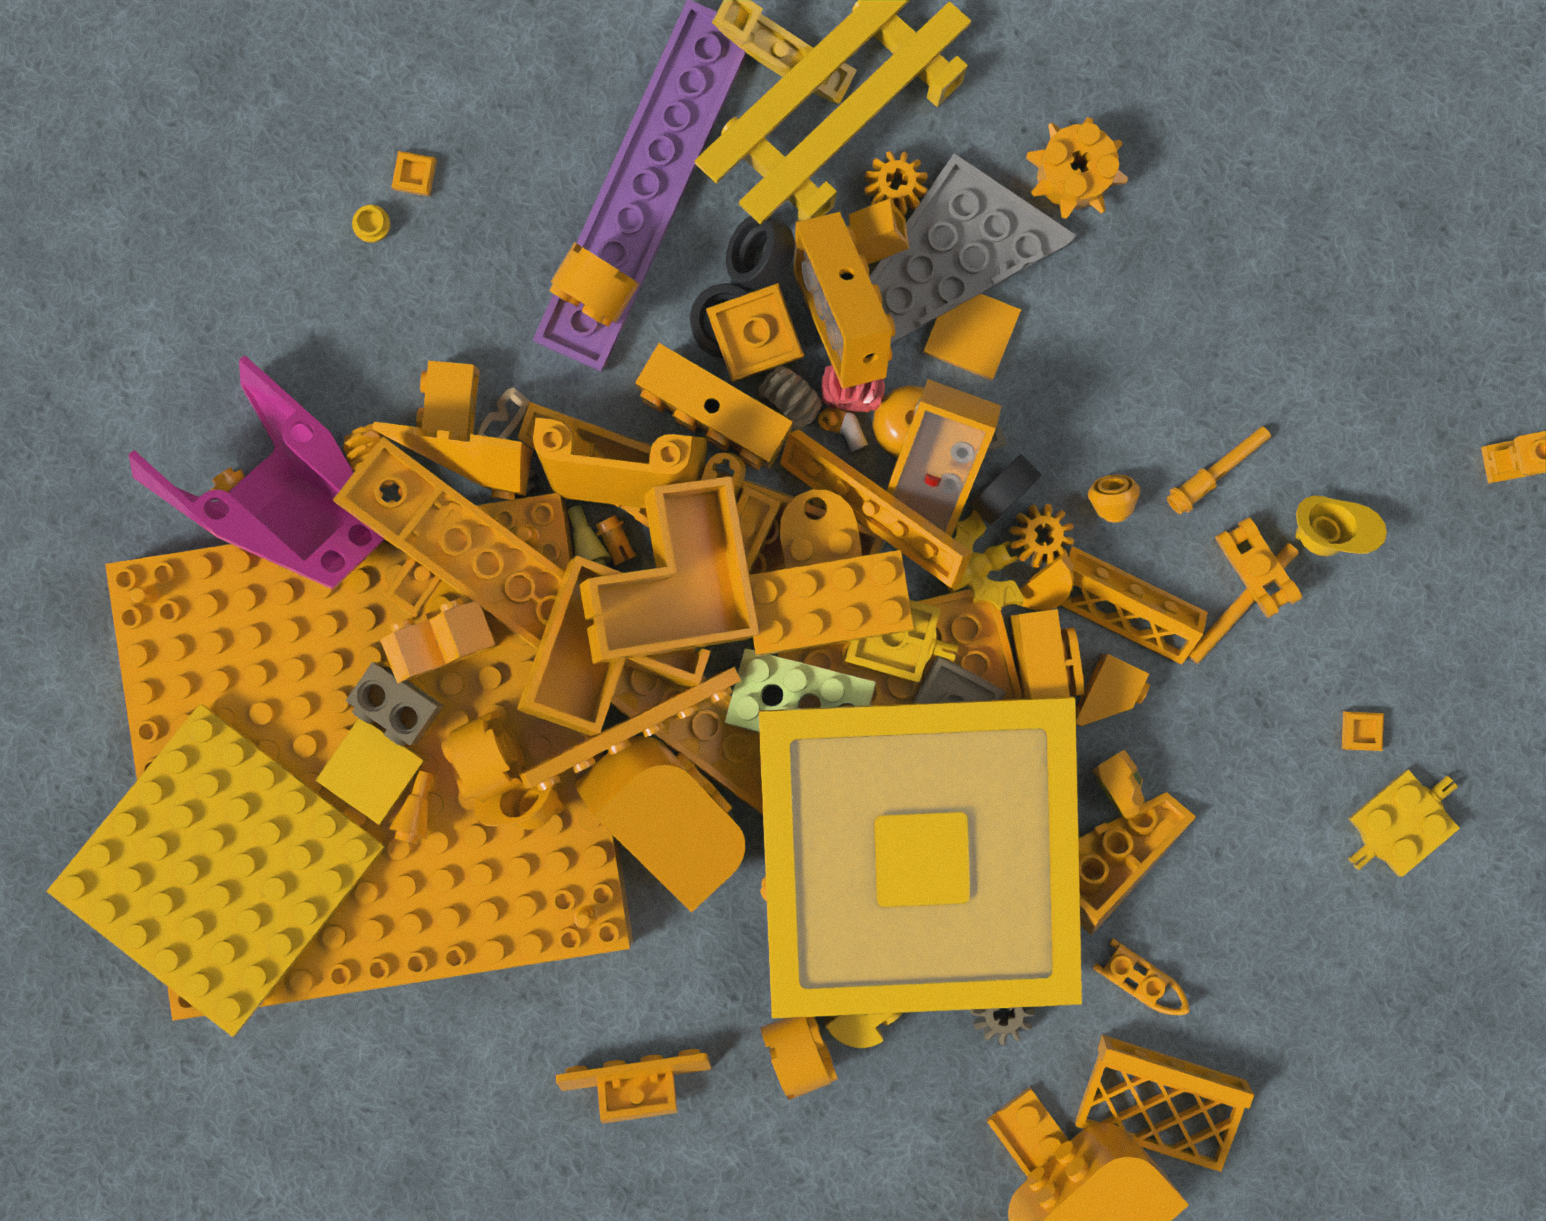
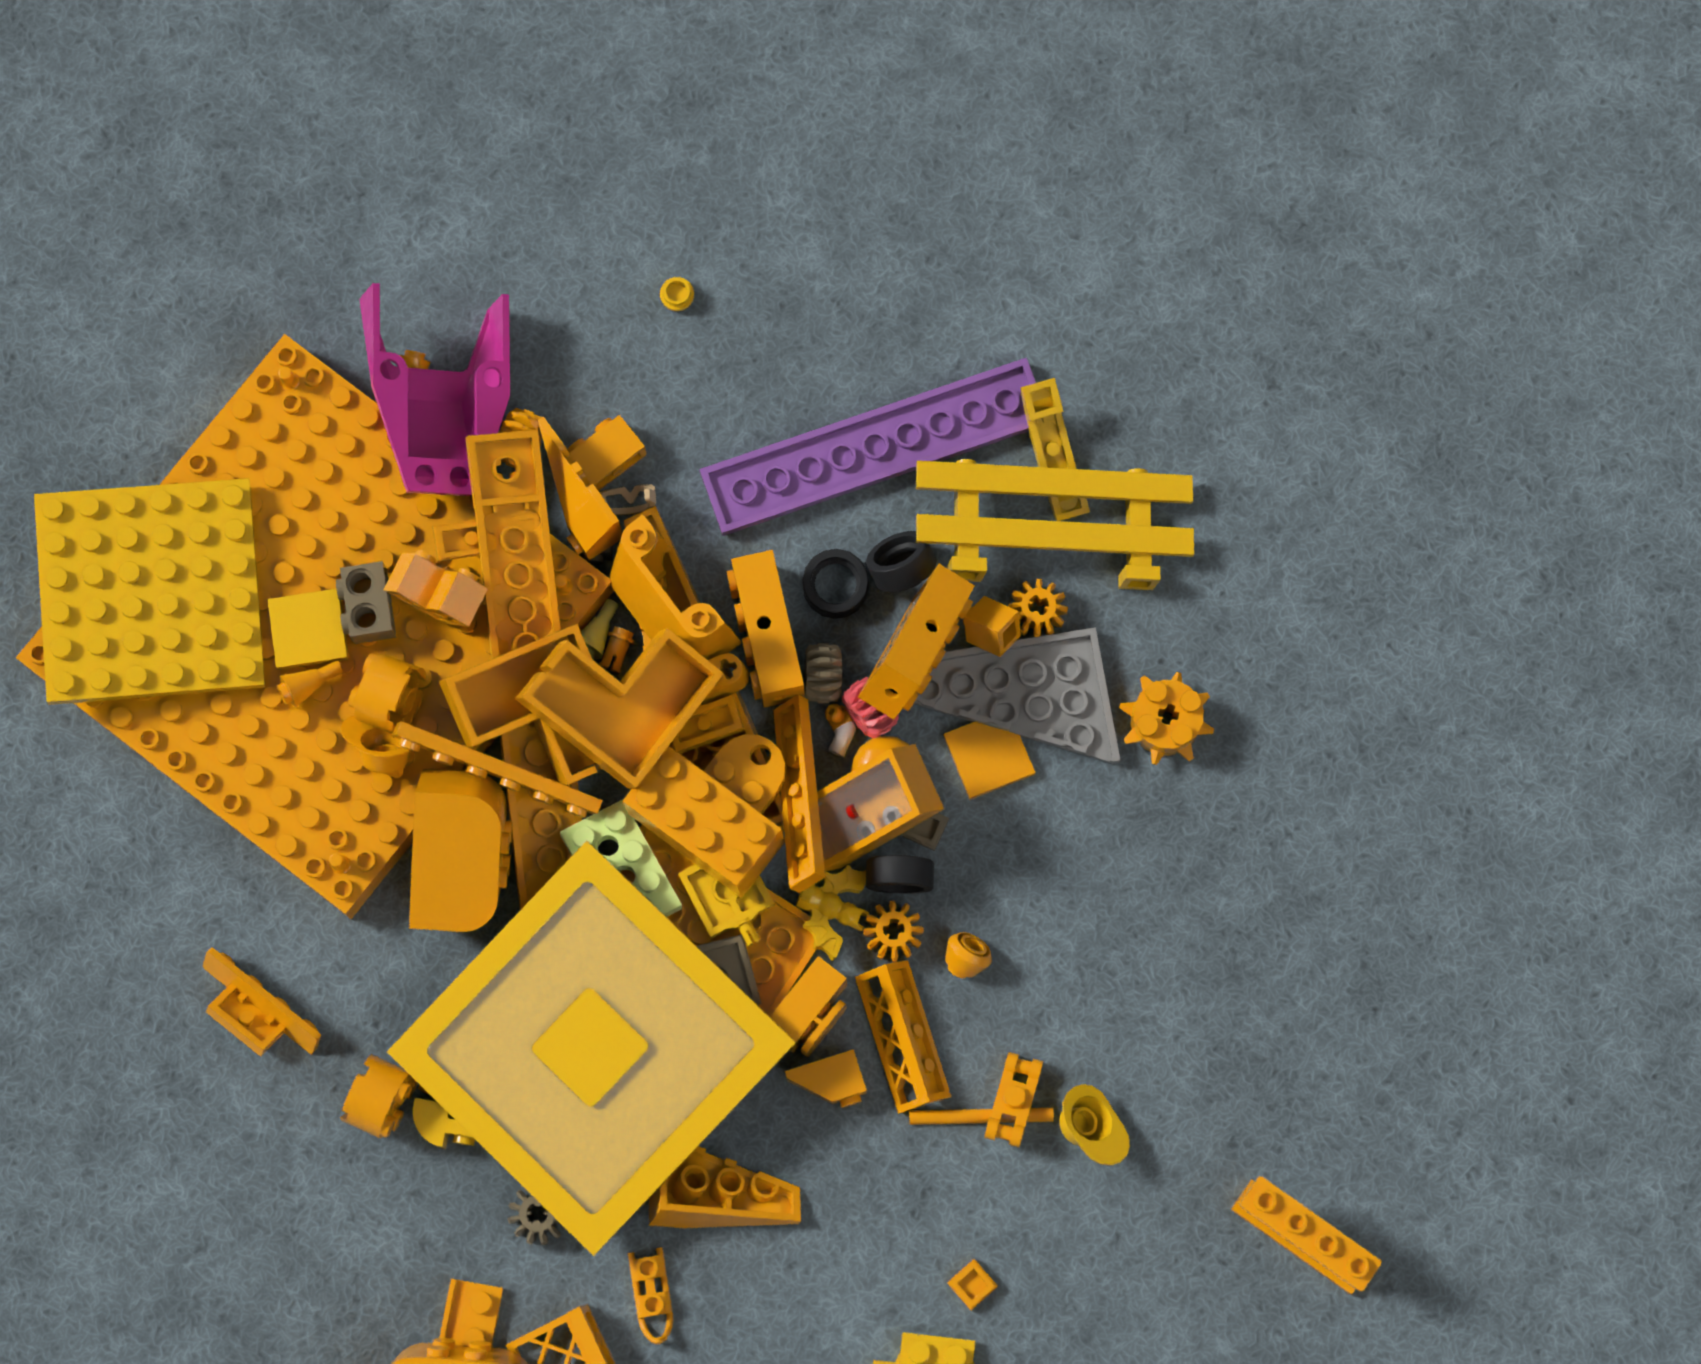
camera: 40 degrees right, 10 degrees down
(414, 173) = (737, 290): light orange tile -> none
(594, 283) = (772, 473): light orange brick -> none
(755, 333) = (842, 608): light orange plate -> none
(1050, 585) = (863, 967): light orange tile -> none
(1121, 784) = (774, 1145): light orange rock -> none
(1204, 481) = (1037, 1008): light orange pin -> none

